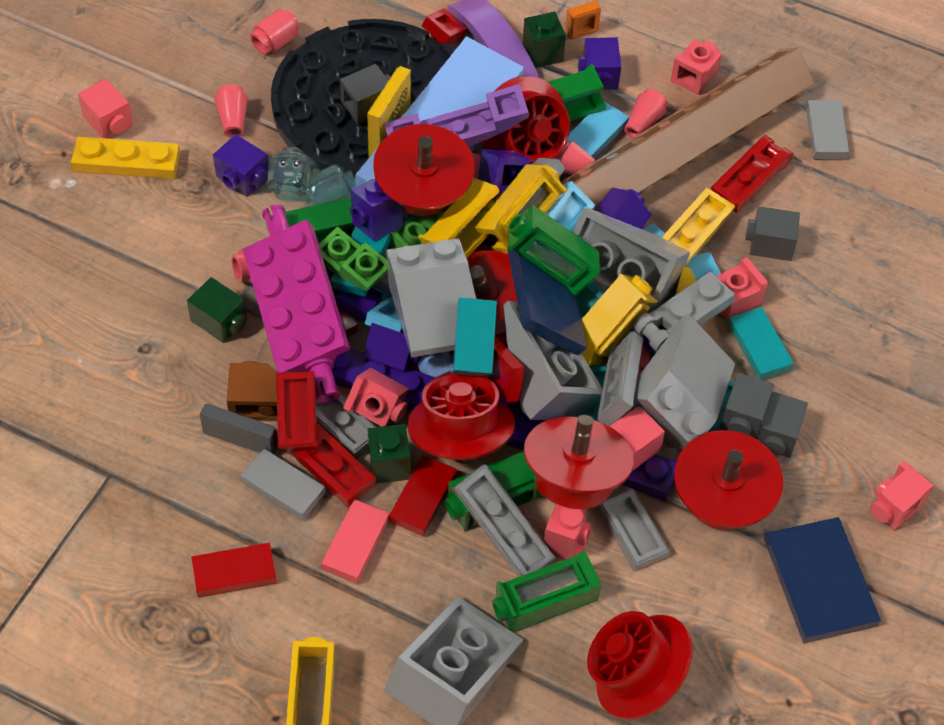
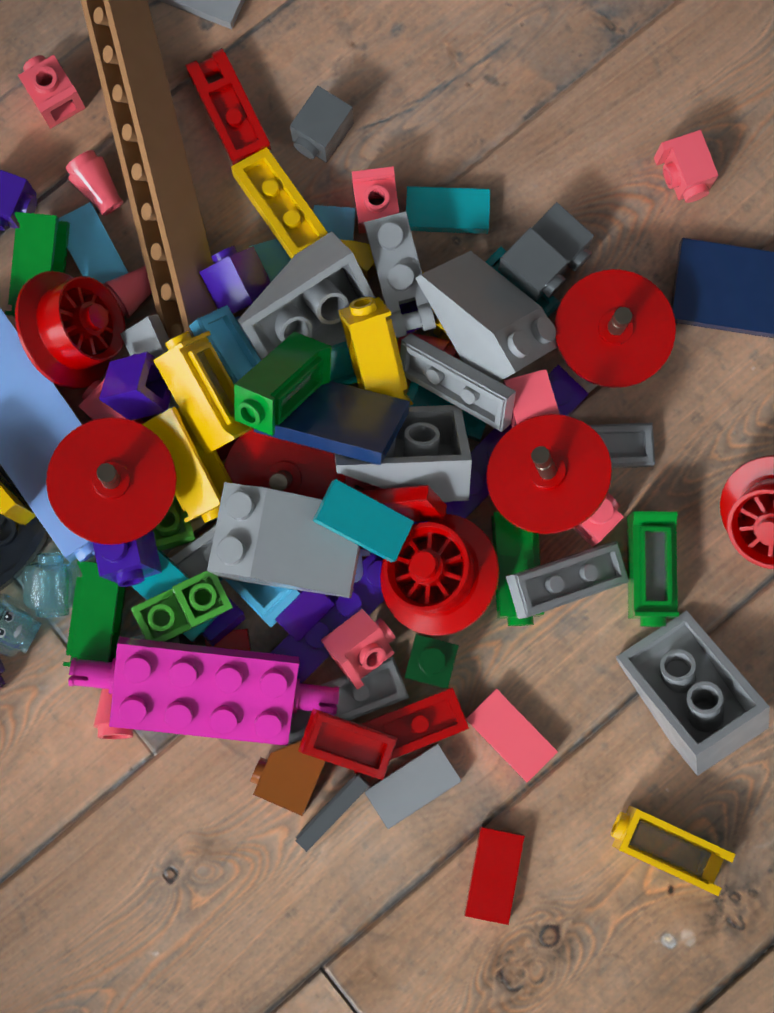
camera: 65 degrees left, 25 degrees up
(217, 310) = (164, 778): dark green brick -> none
(422, 495) = (491, 650): red tile -> none
(479, 122) = (55, 402): medium lavender slope -> none

